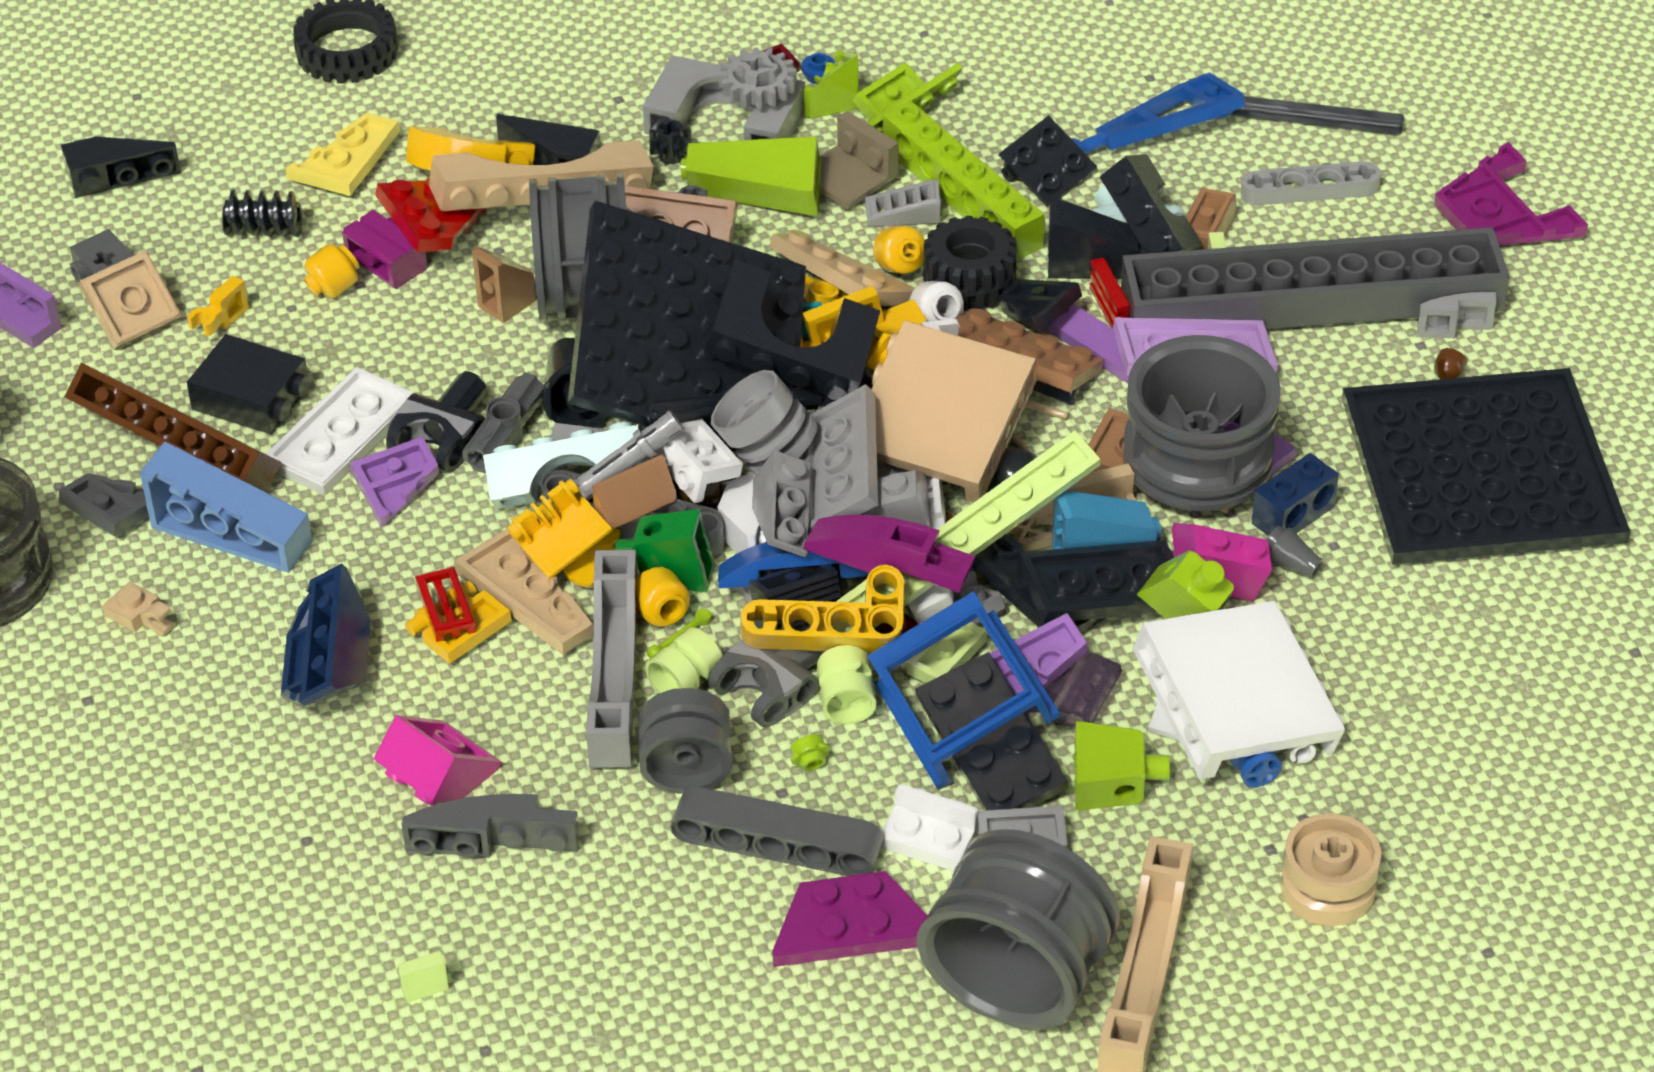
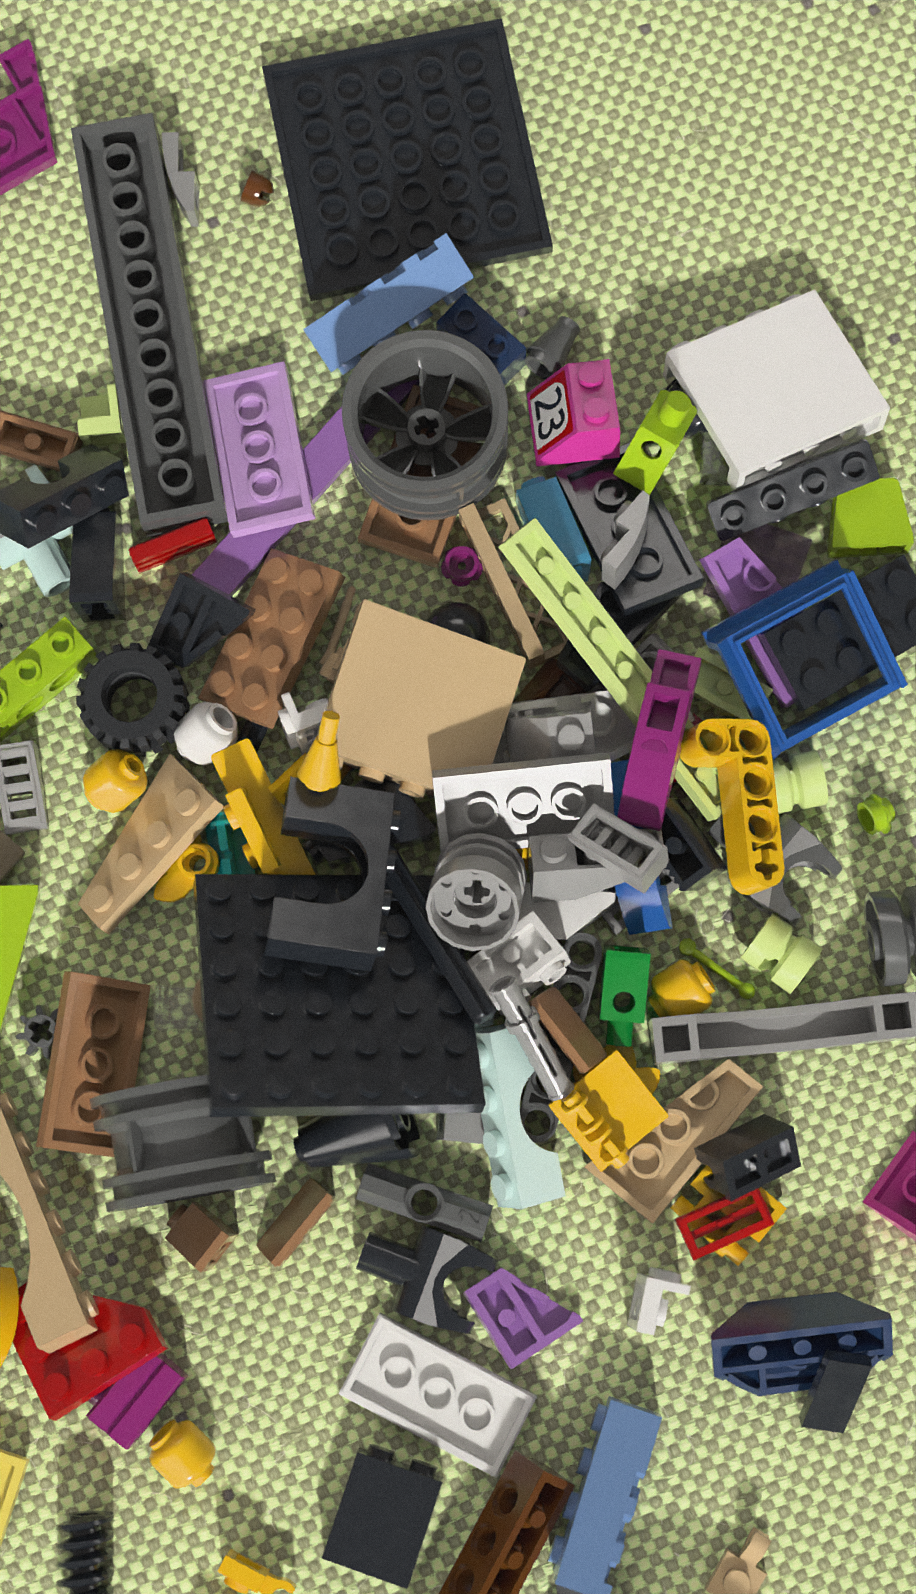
camera: 90 degrees left, 35 degrees up
(277, 666) = (835, 1391): none -> black tile
(386, 544) = (647, 1303): none -> white bracket
(499, 620) = (749, 1156): none -> black hinge
(501, 349) = (295, 1222): none -> medium nougat slope
(783, 504) = (627, 870): none -> light grey slope
(886, 319) = (321, 764): none -> yellow cone
(1092, 560) = (629, 536): none -> light grey slope
(1132, 686) = (793, 490): none -> black bracket
(1335, 430) = (389, 304): none -> medium blue wedge

